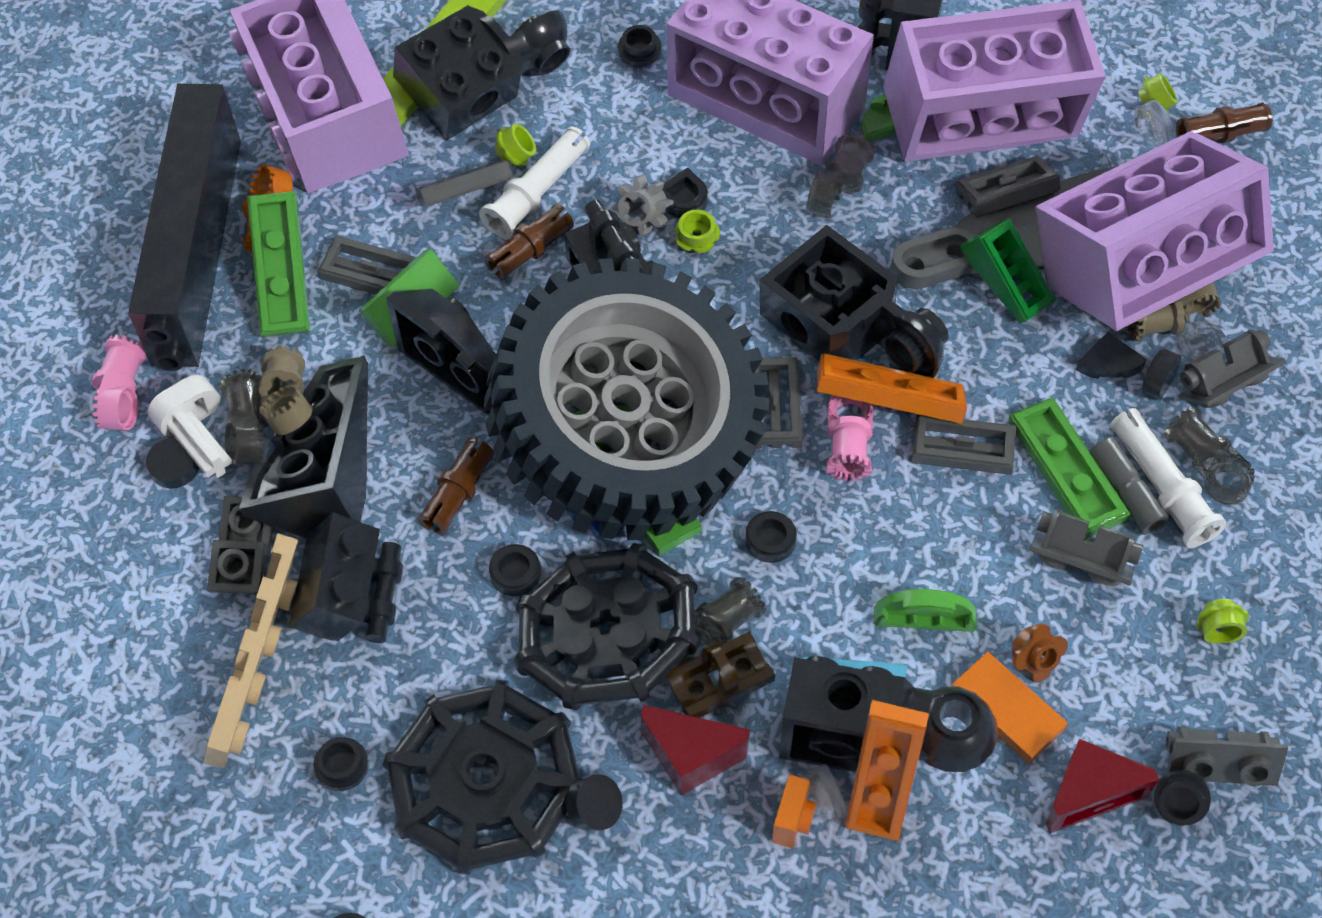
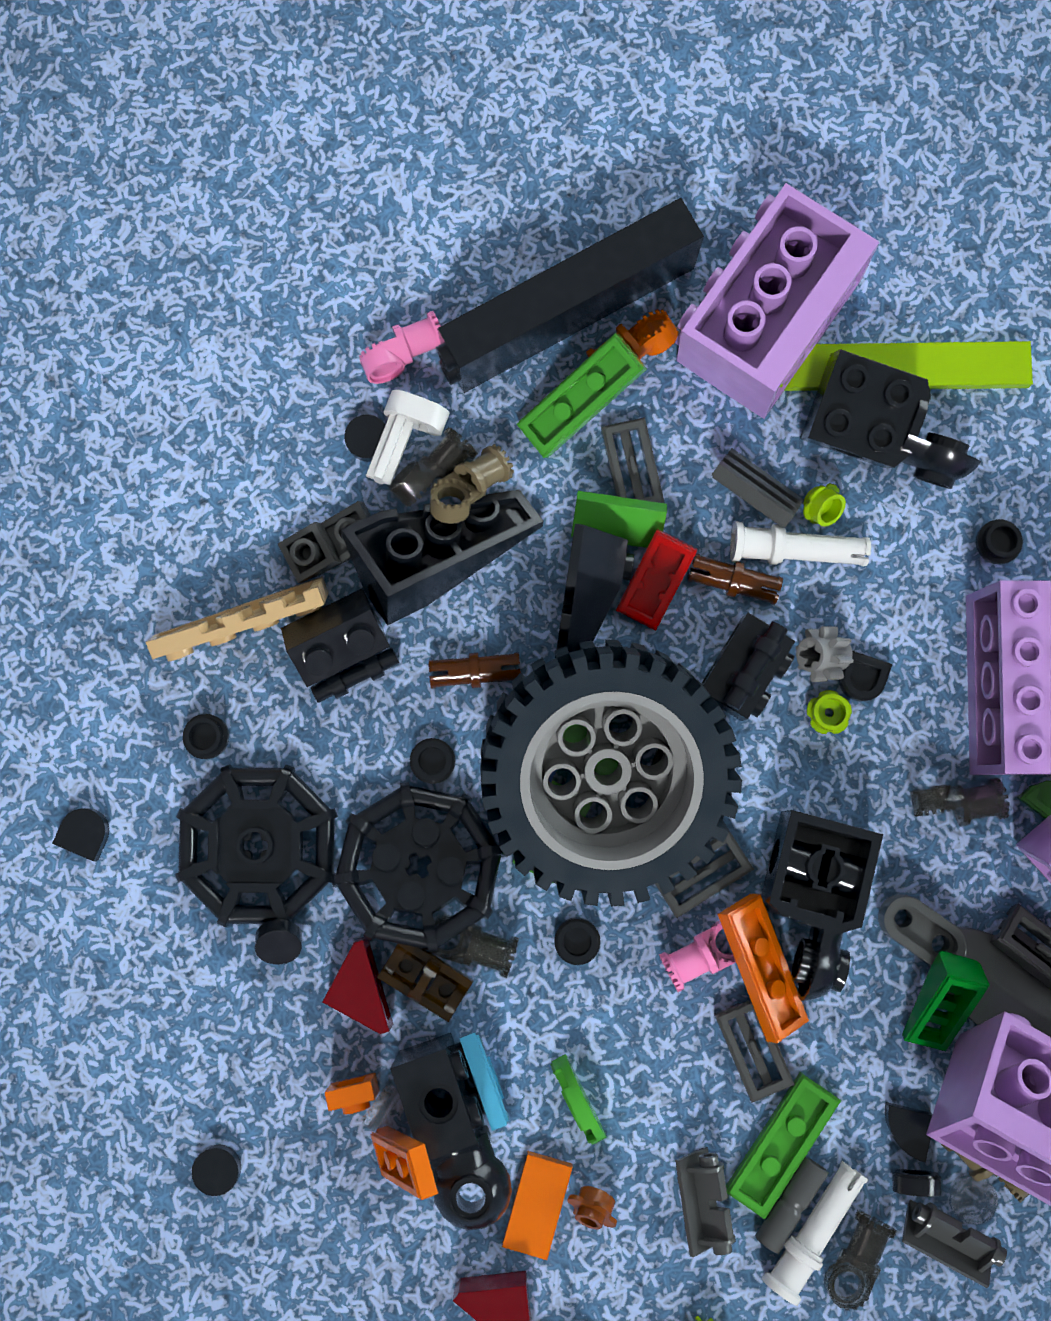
camera: 60 degrees right, 25 degrees up
(481, 291) = (656, 579): none -> red plate

